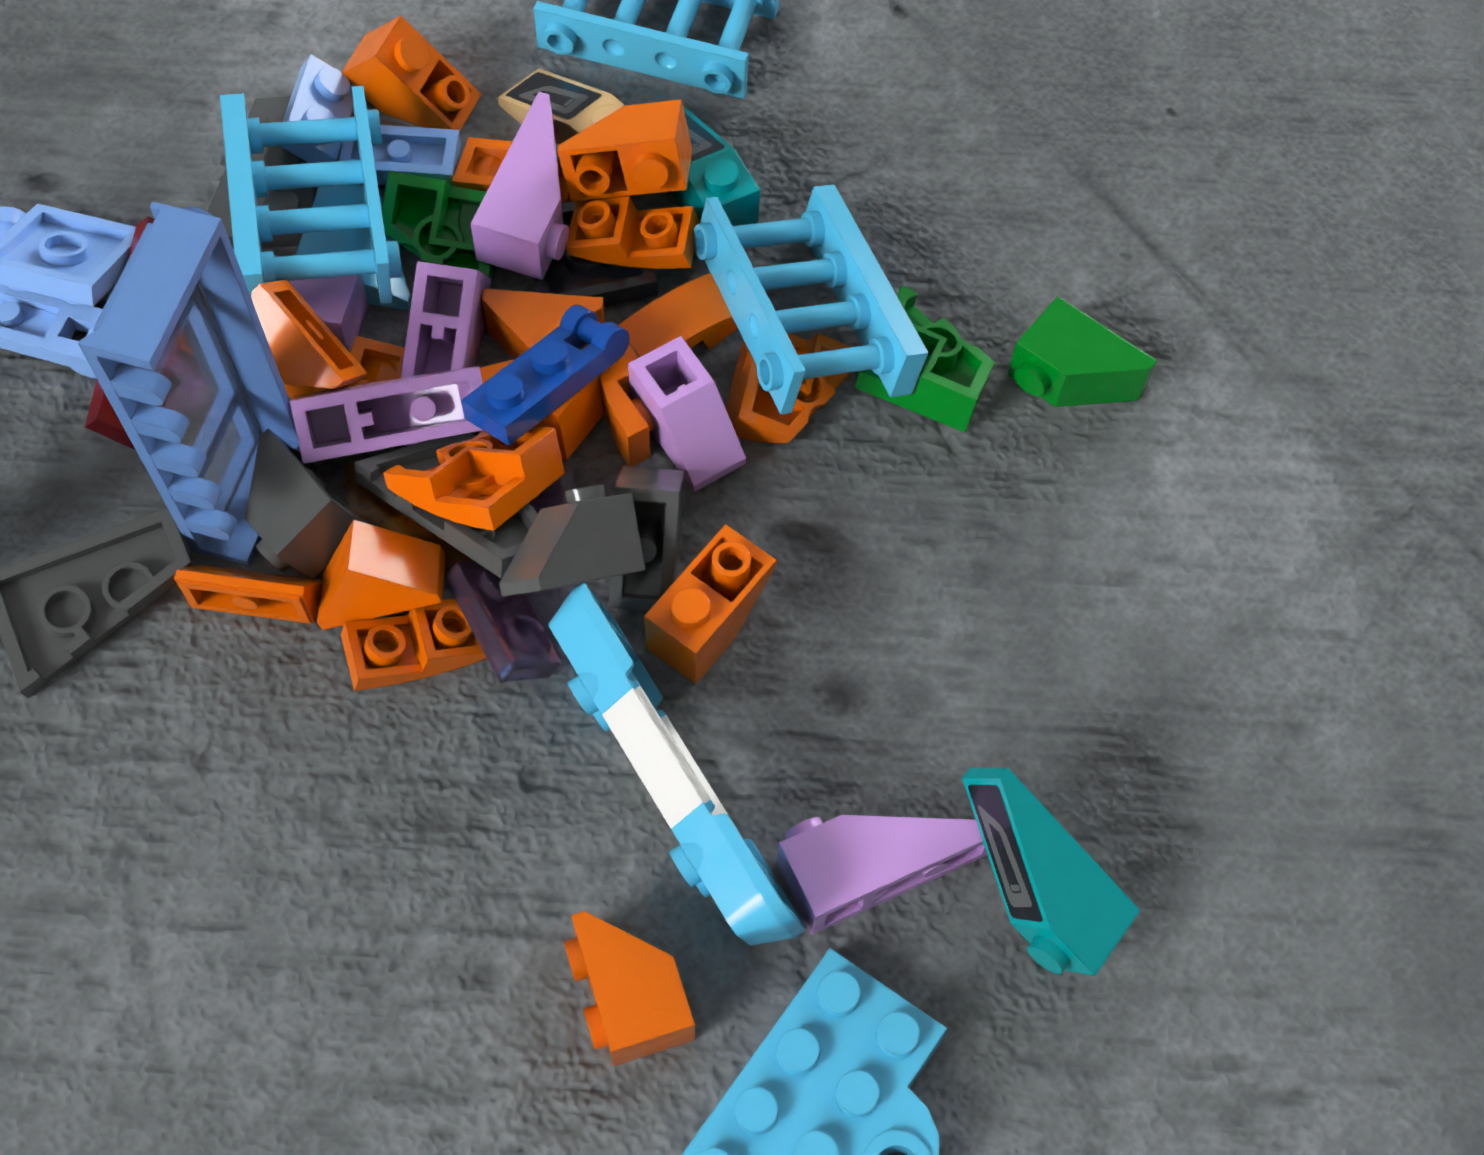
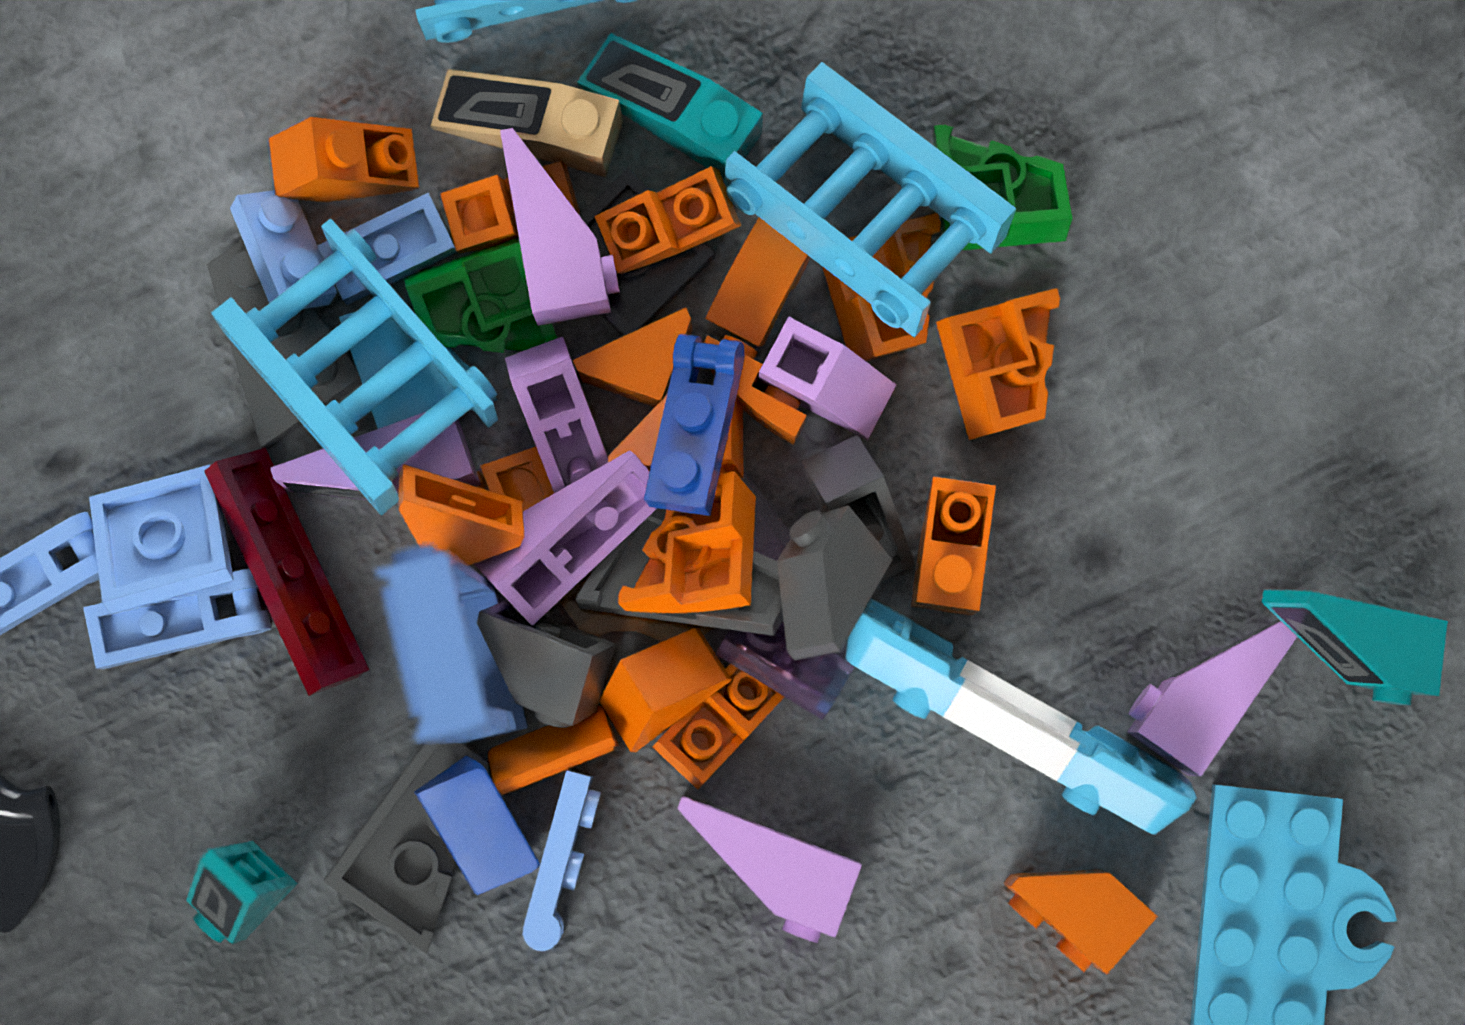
camera: 25 degrees left, 20 degrees up
(137, 602) = (477, 826): none -> slope
(188, 674) = (559, 862): none -> light blue plate
(377, 797) = (785, 873): none -> lavender slope
(629, 153) = (629, 150): orange slope -> none
(849, 489) = (1000, 362): none -> orange slope
(1078, 360) = (1130, 117): green slope -> none

